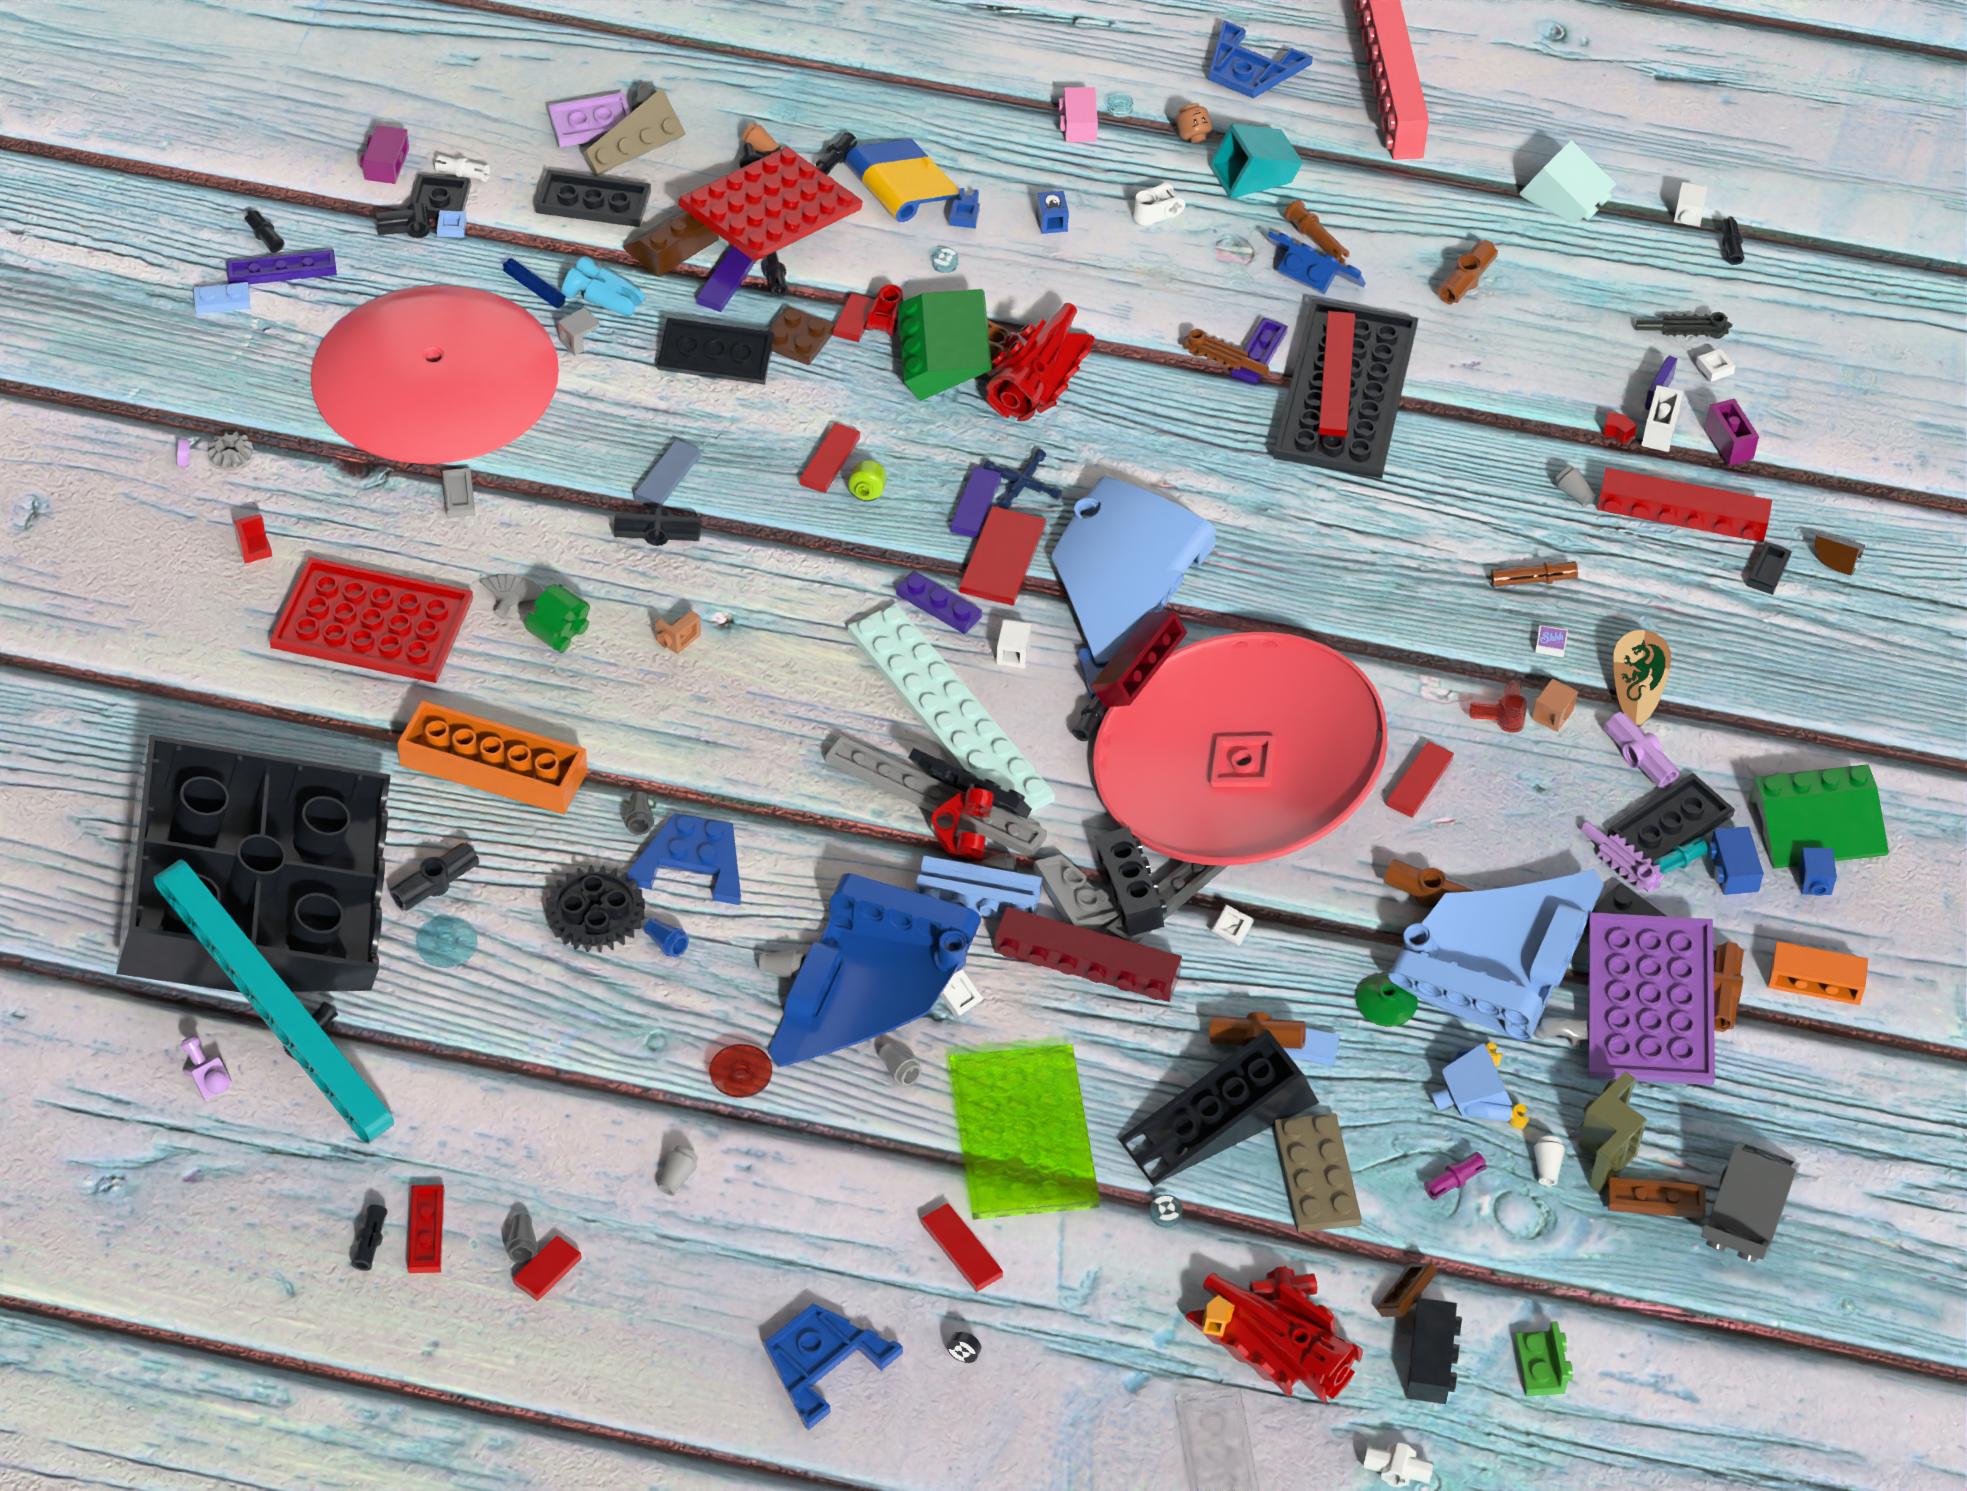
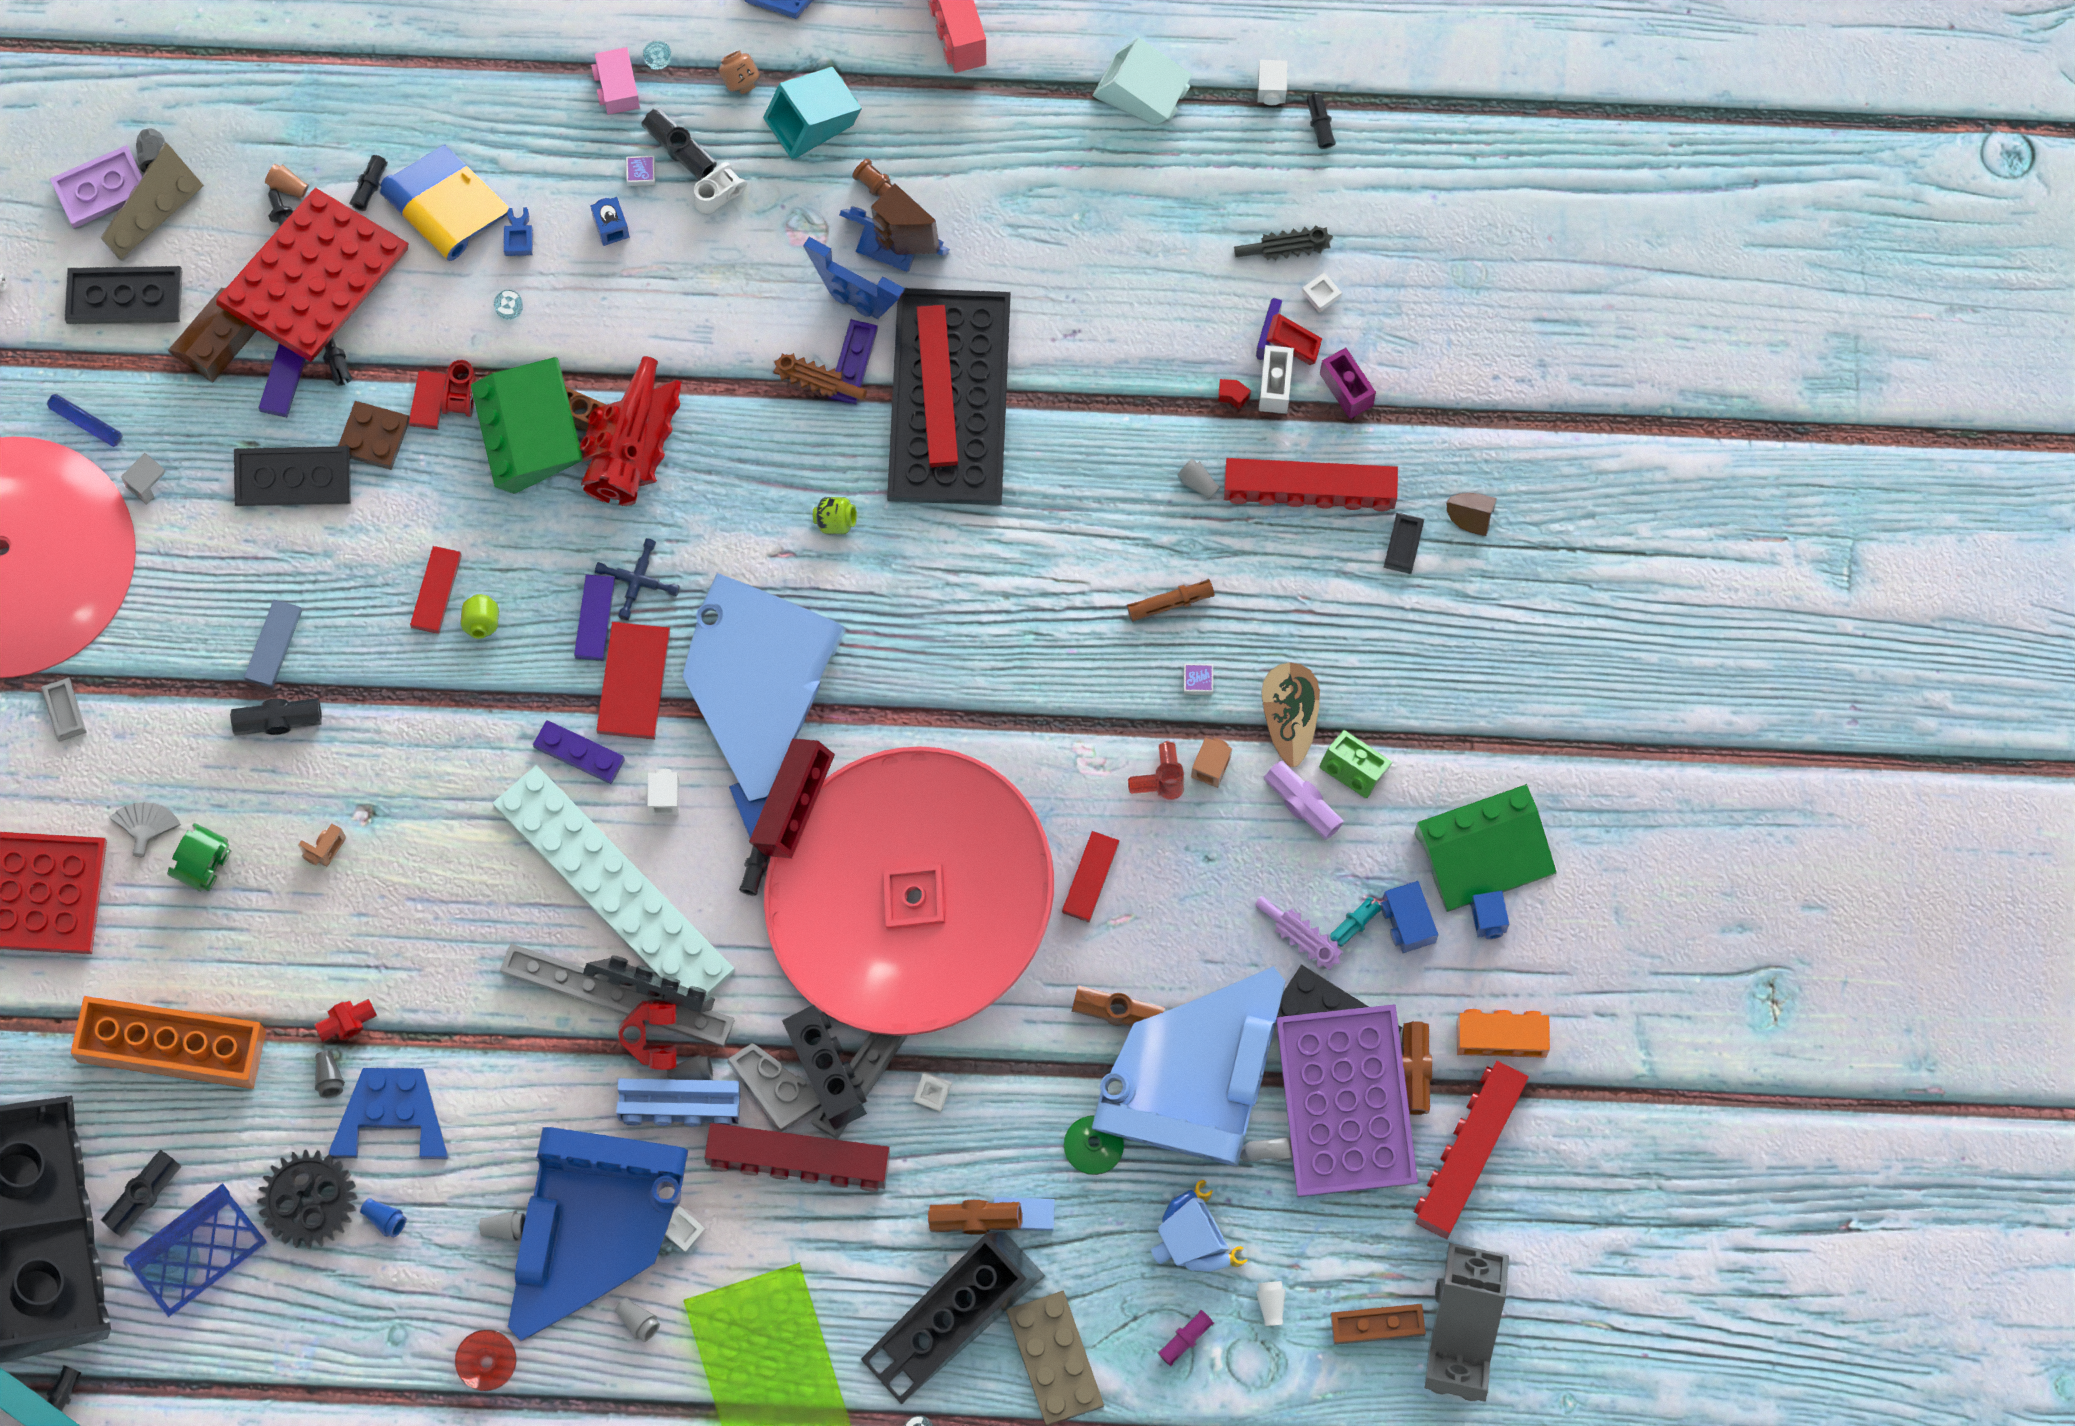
camera: 10 degrees left, 20 degrees up
(460, 909) = (179, 1229): none -> clear blue fence
(604, 290) = (164, 418): medium azure piece -> none
(666, 772) = (345, 1020): none -> red axle
(1088, 183) = (640, 170): none -> tile
(1126, 164) = (668, 133): none -> black piece
(1221, 457) = (835, 515): none -> lime head
(1267, 285) = (849, 287): none -> blue wing
(1329, 234) = (903, 224): none -> reddish brown slope
(1467, 272) = (1047, 232): dark orange piece -> none
(1611, 1130) = (1326, 1265): olive bracket -> none
(1673, 818) = (1342, 877): black tile -> none
(1694, 400) = (1289, 334): none -> red tile
(1696, 730) = (1354, 764): none -> bright green bracket
(1772, 1064) = (1471, 1149): none -> red brick

